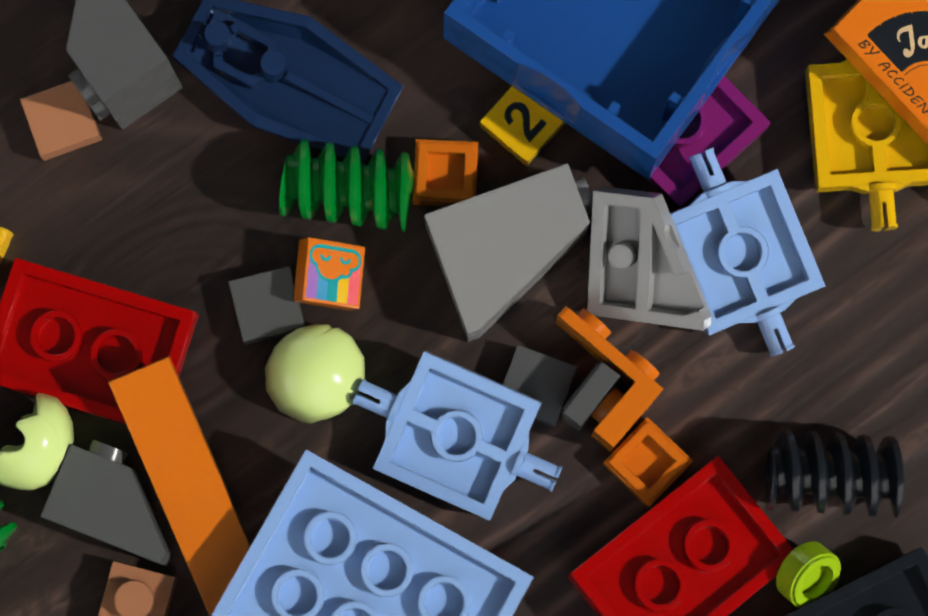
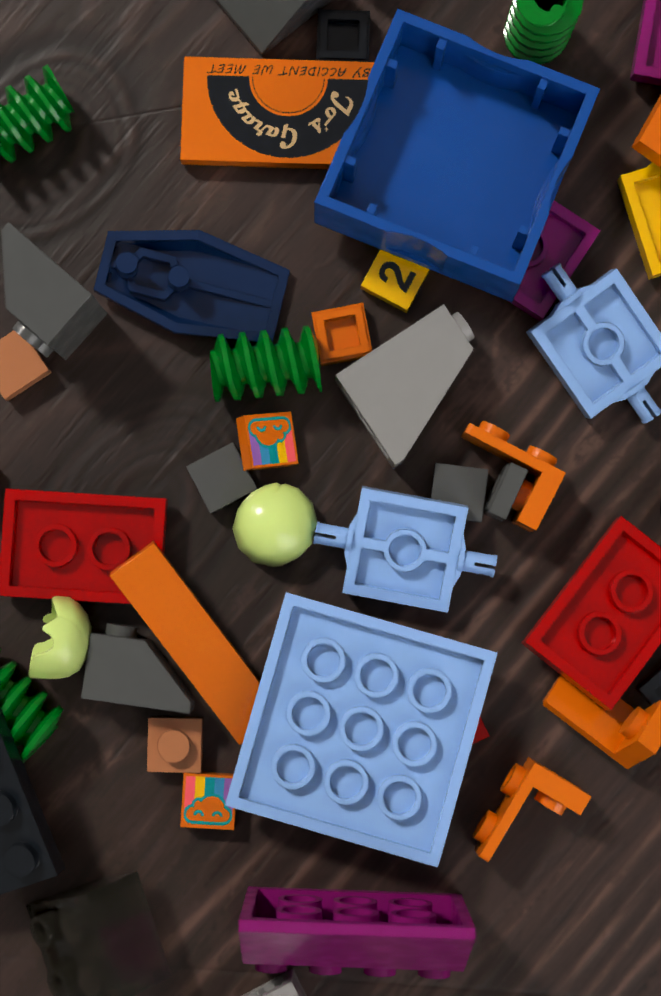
camera: 15 degrees left, 5 degrees up
(640, 263) = (522, 372): light grey wing -> none
(647, 462) = (563, 534): orange tile -> none

